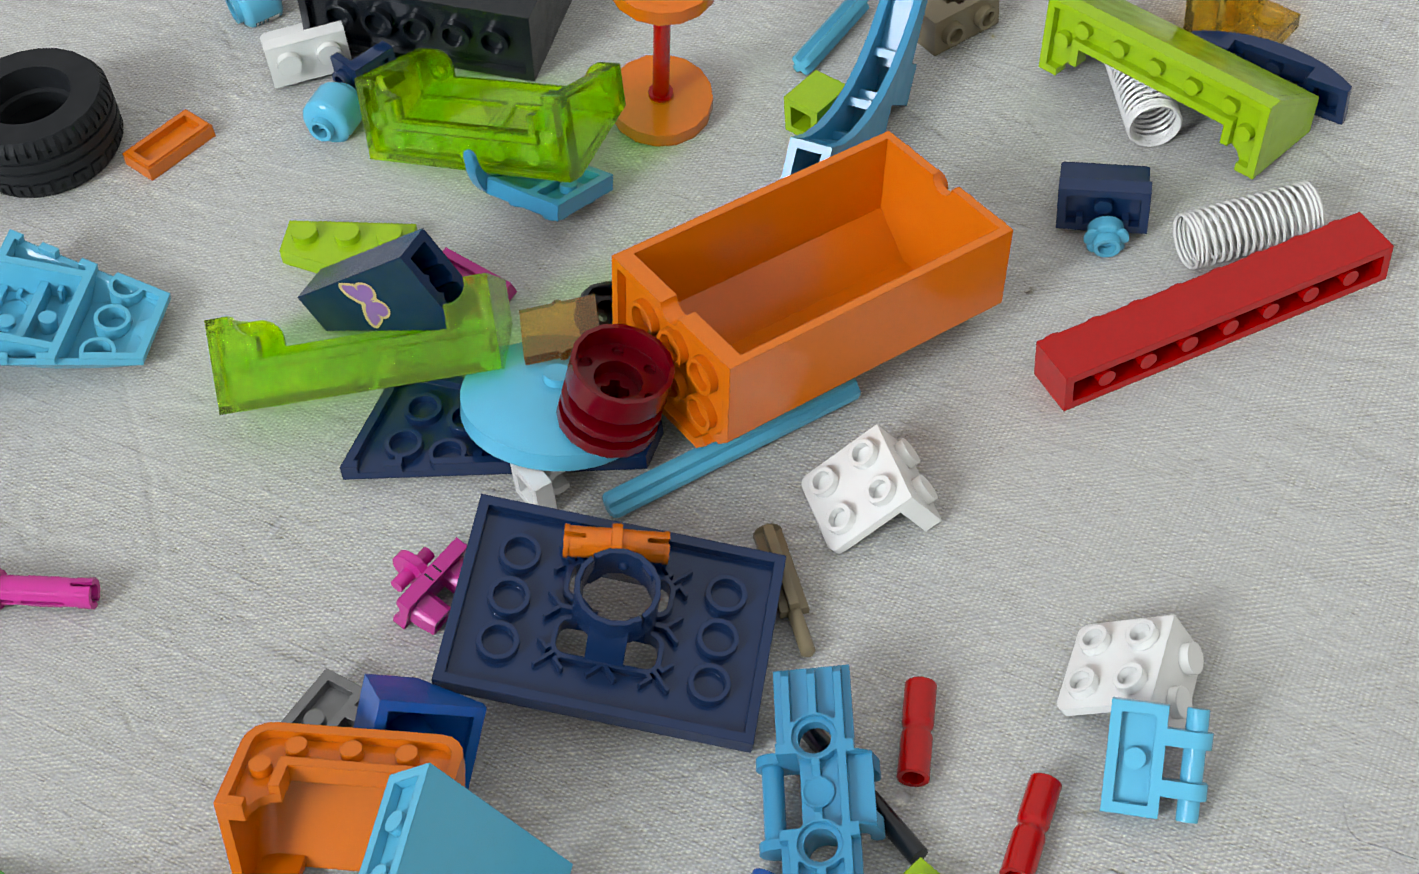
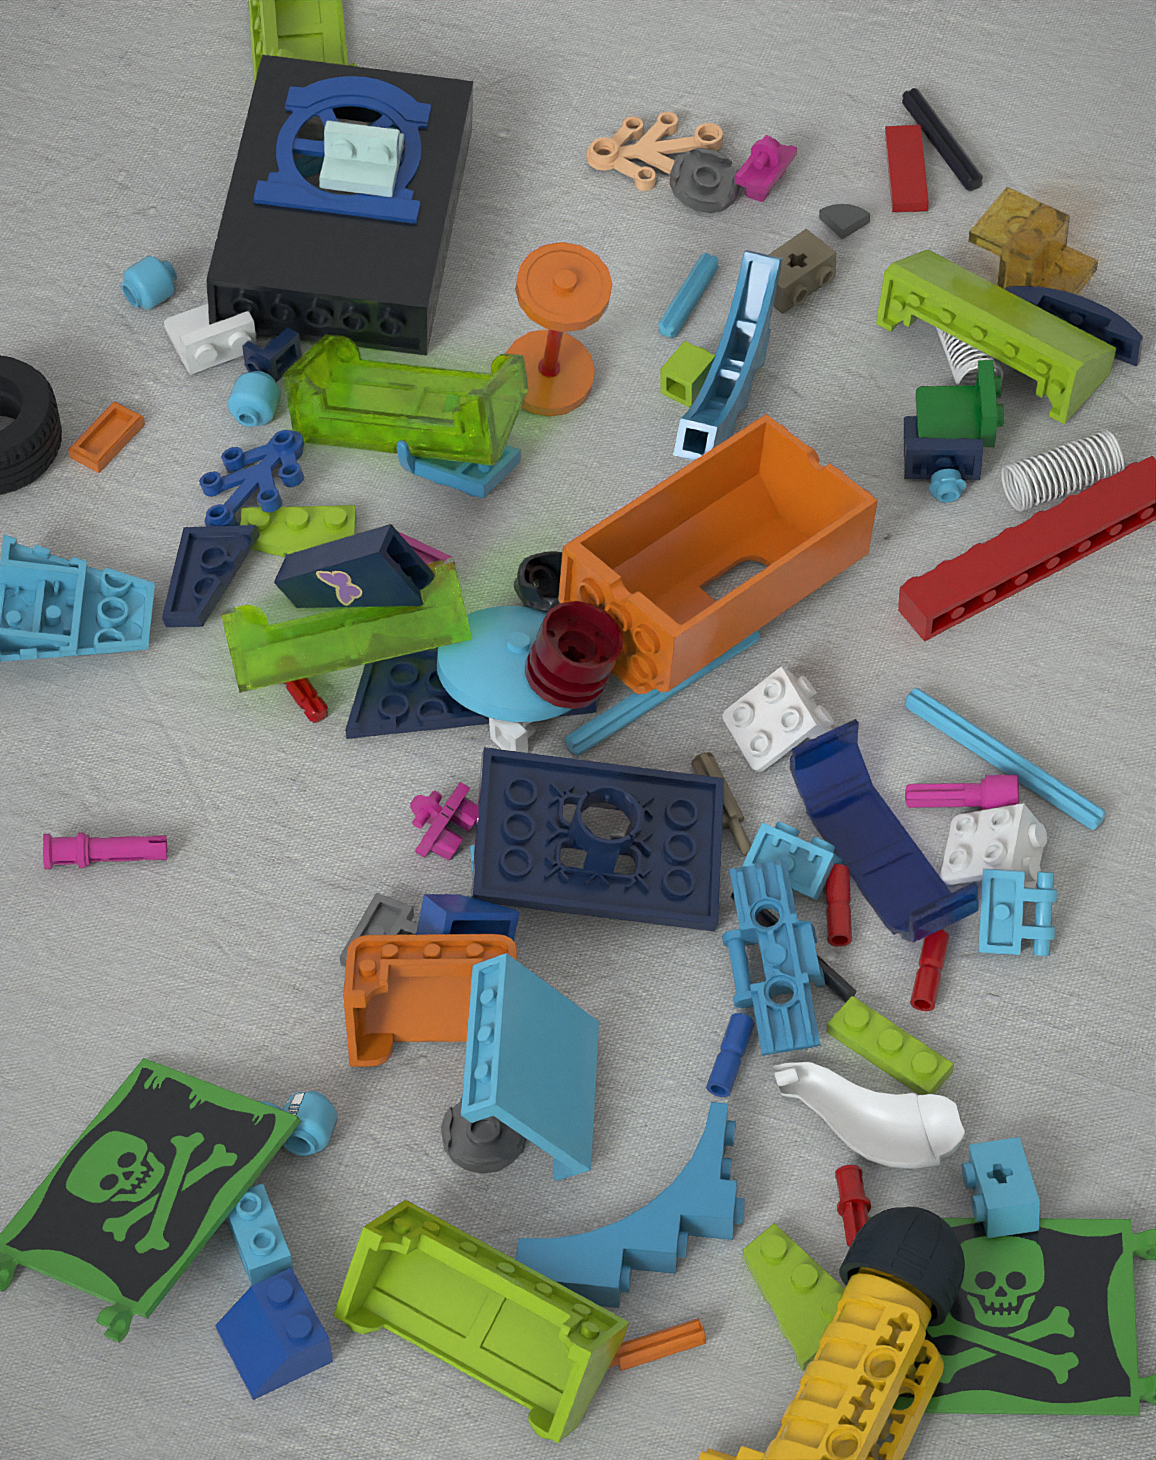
camera: 10 degrees left, 5 degrees up
(229, 281) = (203, 571): none -> dark blue wing
(308, 429) = (307, 699): none -> red axle
(312, 196) = (282, 448): none -> blue plant
(553, 328) = (510, 600): clear orange piece -> none
(587, 540) = (585, 778): orange pin -> none
(877, 672) = (807, 862): none -> medium azure bracket
(971, 649) = (872, 840): none -> clear blue windscreen
(1132, 599) = (991, 793): none -> dark pink piece
(1133, 153) = (962, 410): none -> green bracket
(1158, 561) = (1005, 759): none -> medium azure axle

